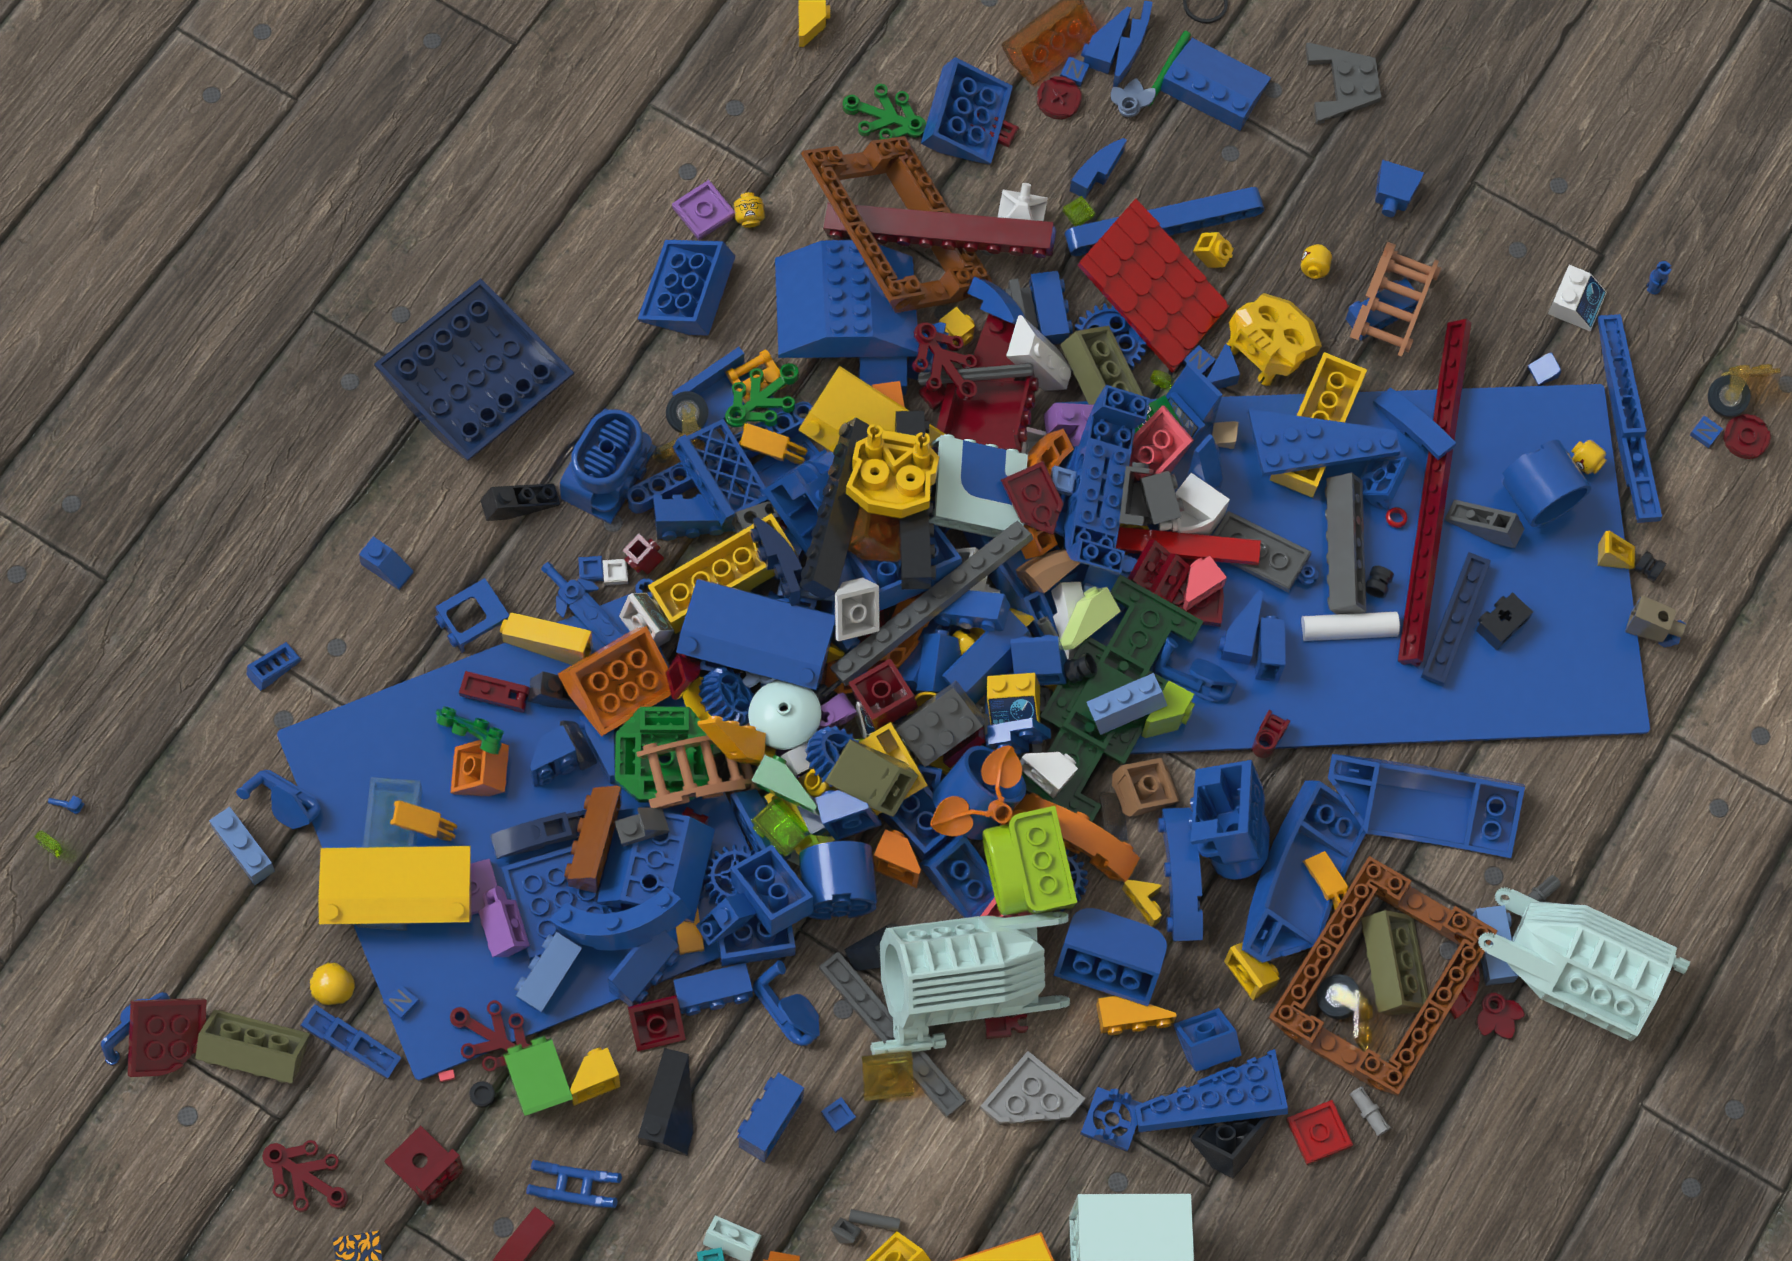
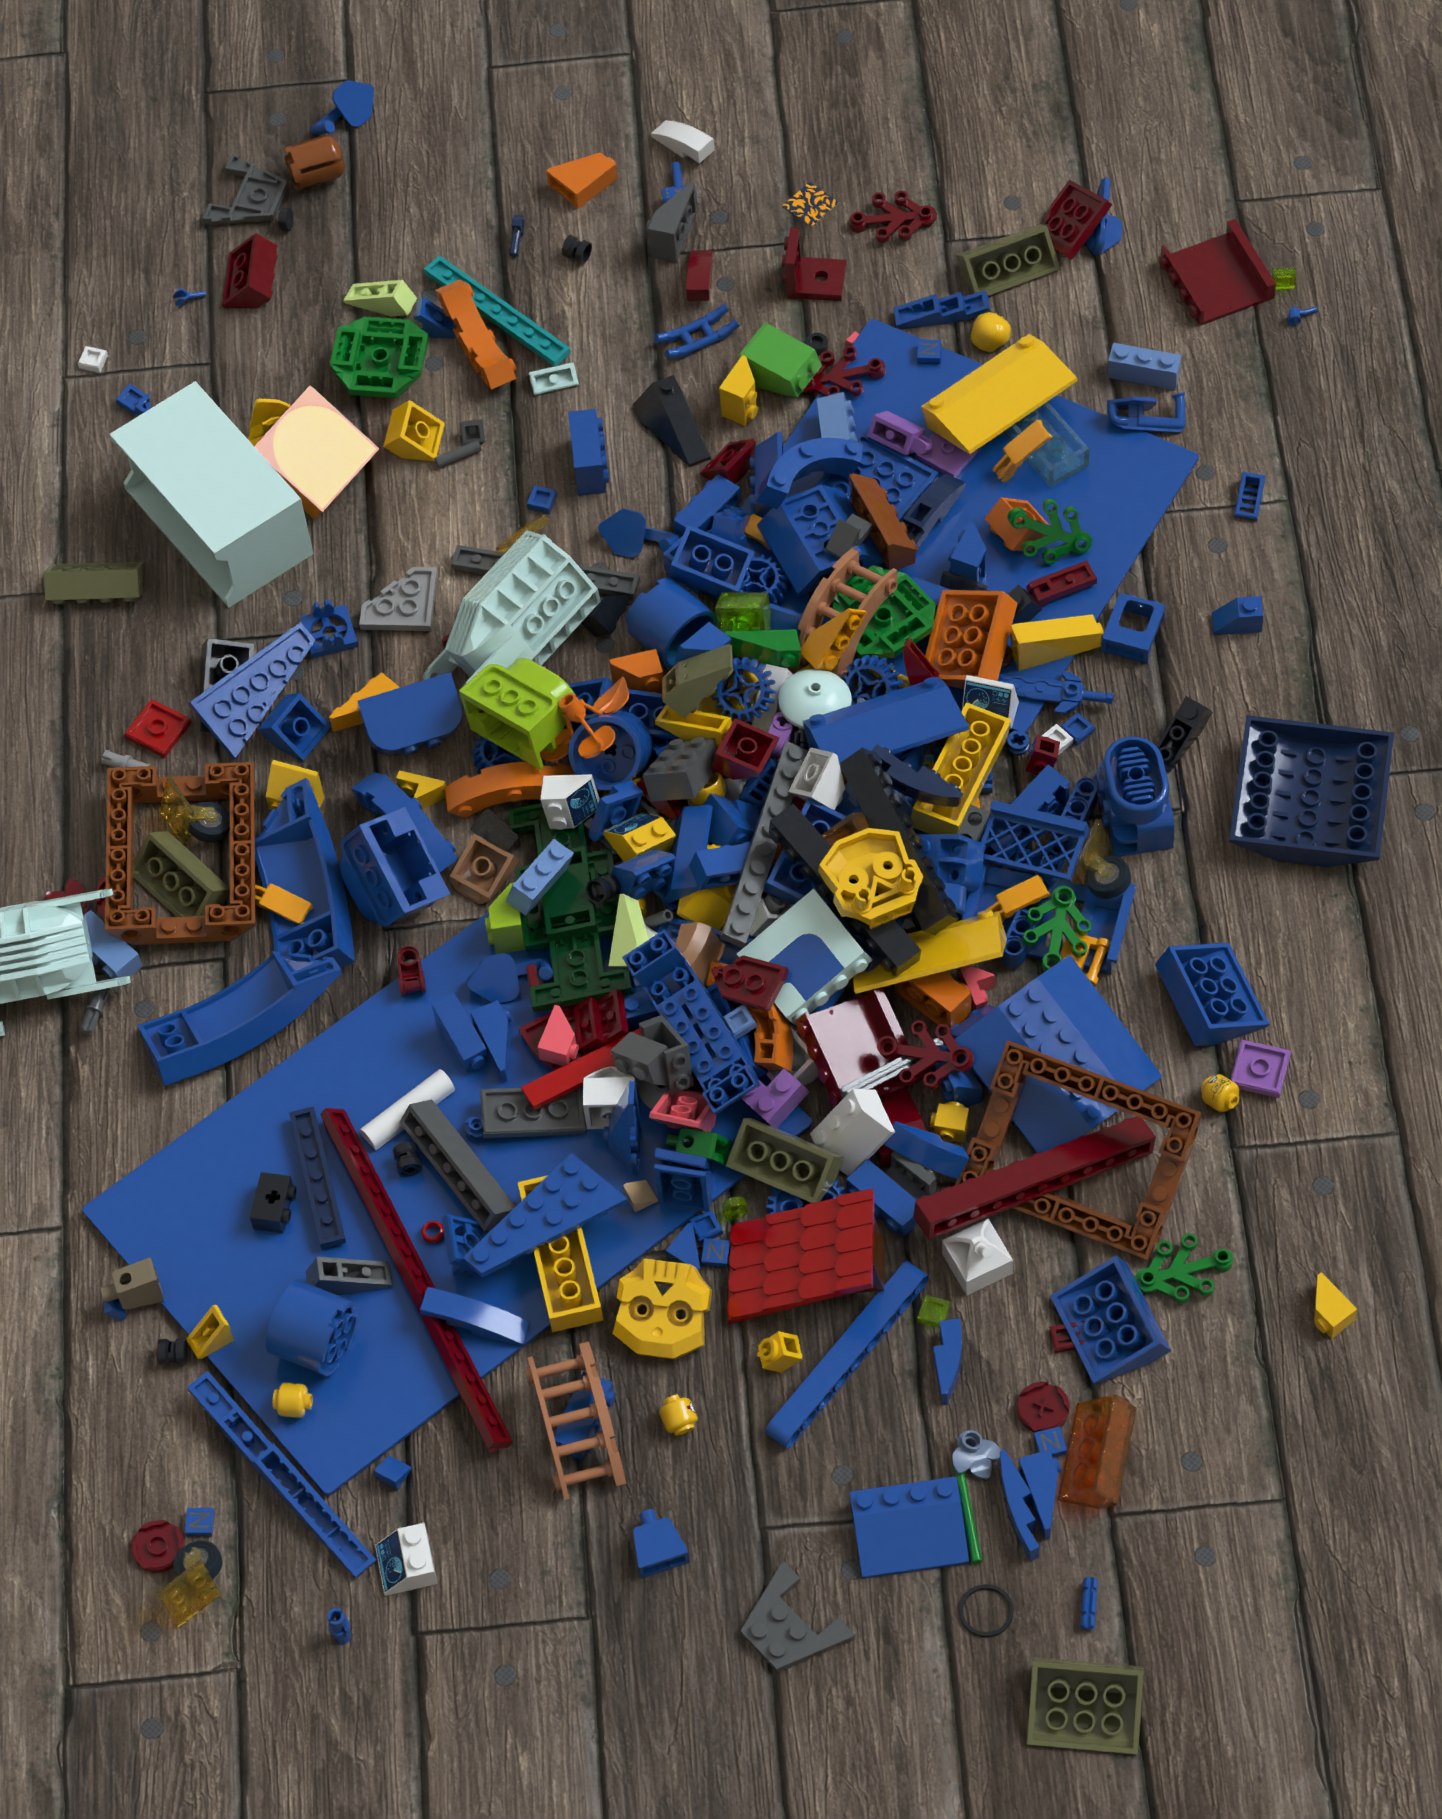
camera: 155 degrees right, 10 degrees down
(94, 895) = (1219, 275): none -> dark red panel
(1180, 655) = (532, 975): none -> dark red tile

